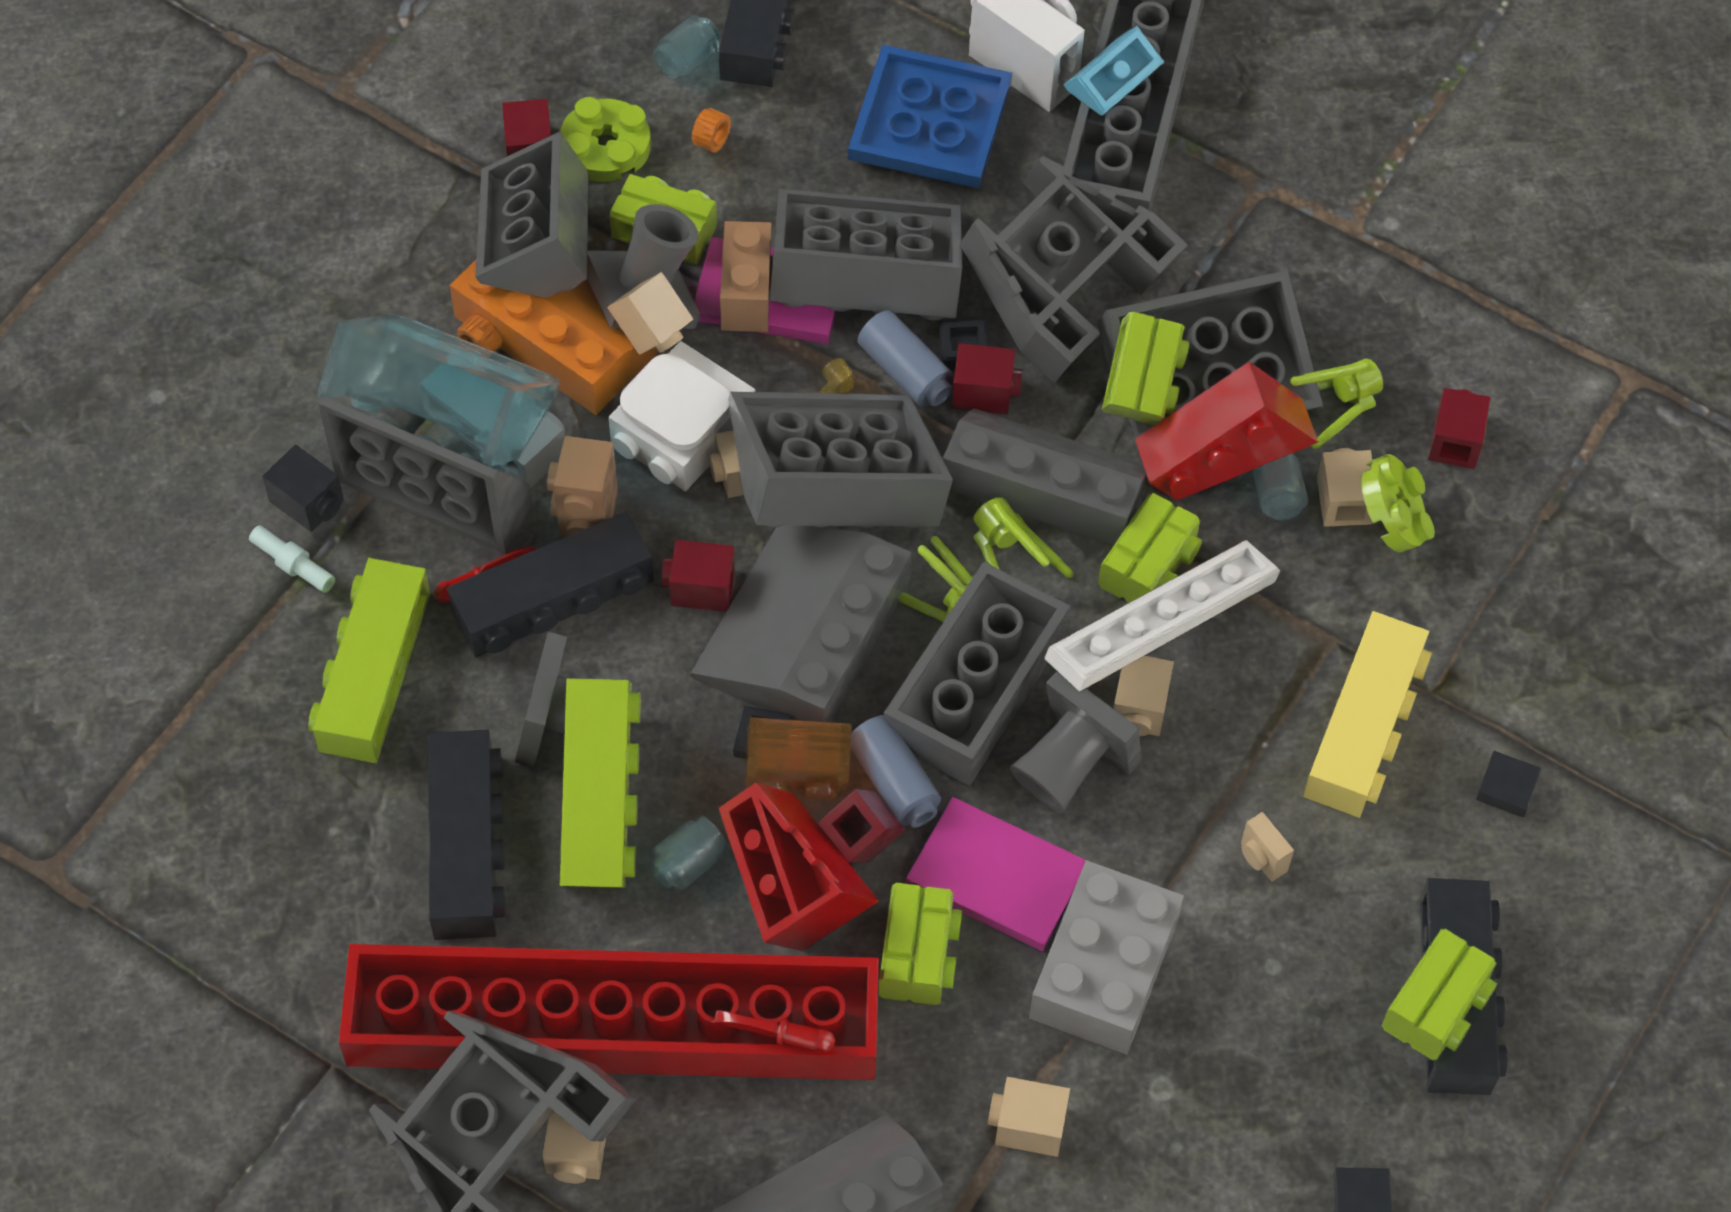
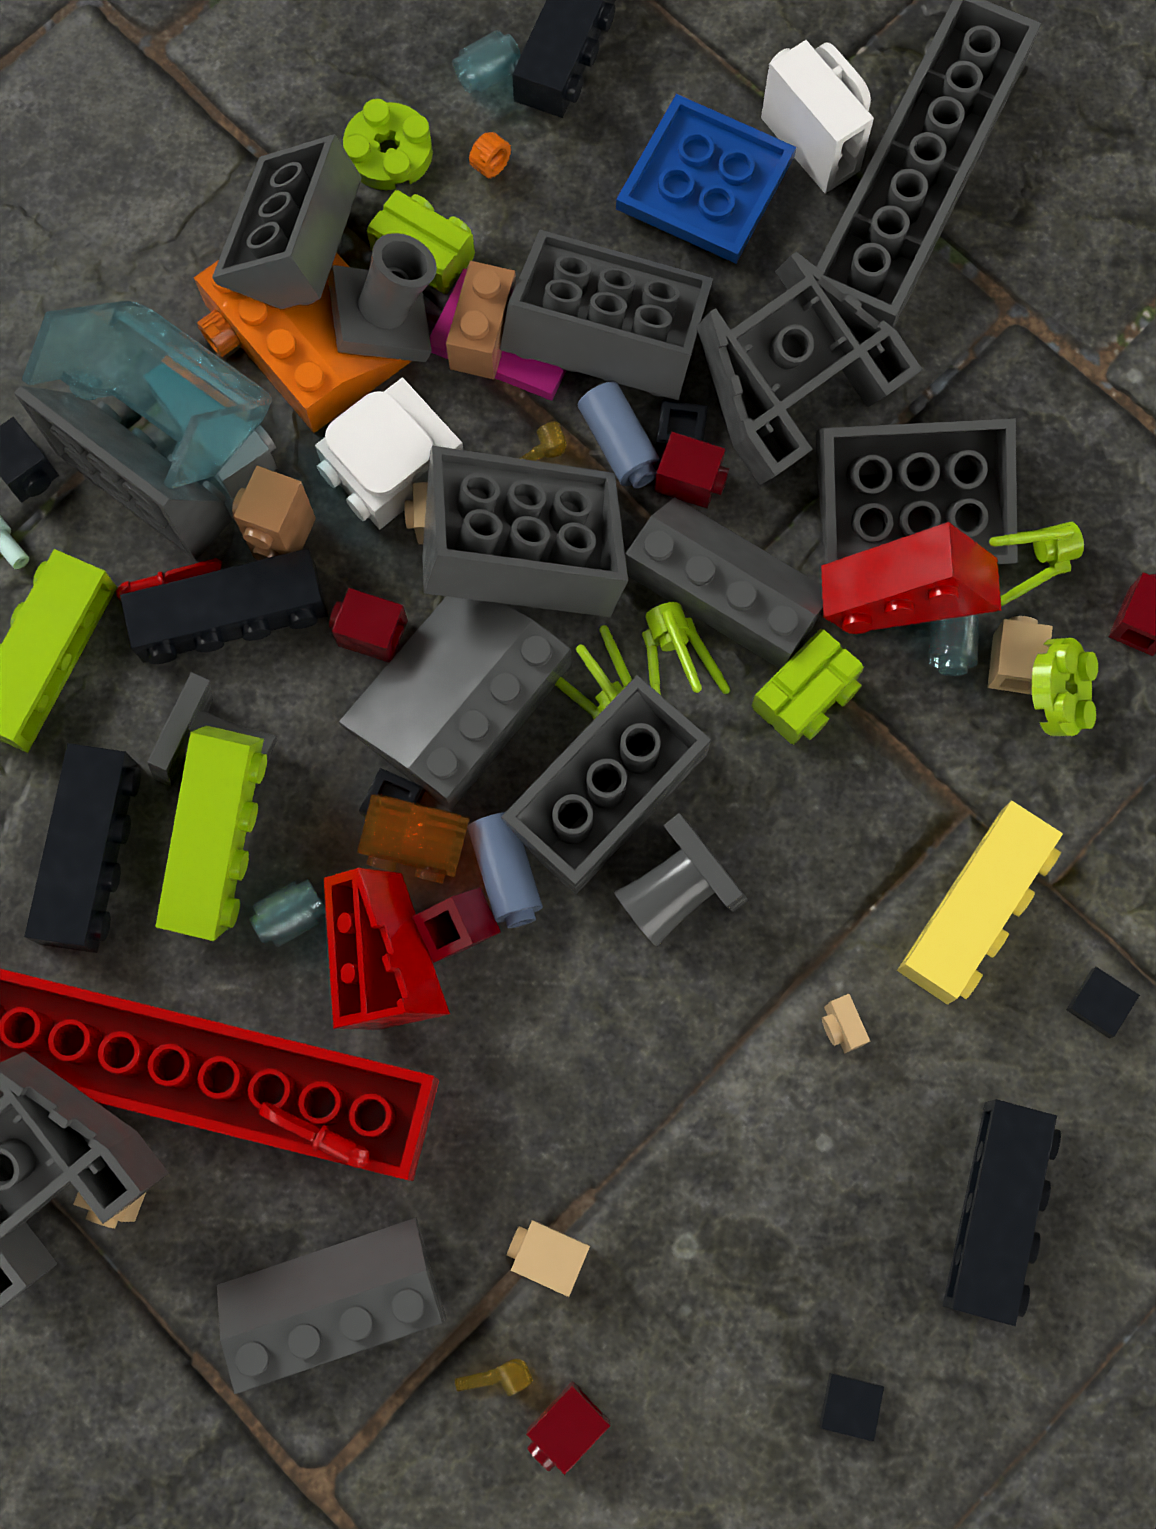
camera: 15 degrees right, 15 degrees up
(525, 123) = (311, 118): dark red brick -> none
(651, 315) = (375, 348): tan brick -> none
(917, 944) = (484, 1054): lime brick -> none
(998, 873) = (580, 992): dark pink tile -> none
(1106, 957) = (662, 1108): light grey brick -> none
(1115, 71) = (894, 168): medium azure slope -> none
(1144, 693) = (763, 838): tan brick -> none
(1145, 368) = (846, 498): lime brick -> none
(1161, 615) = (798, 766): white tile -> none
(1440, 994) = (977, 1238): lime brick -> none

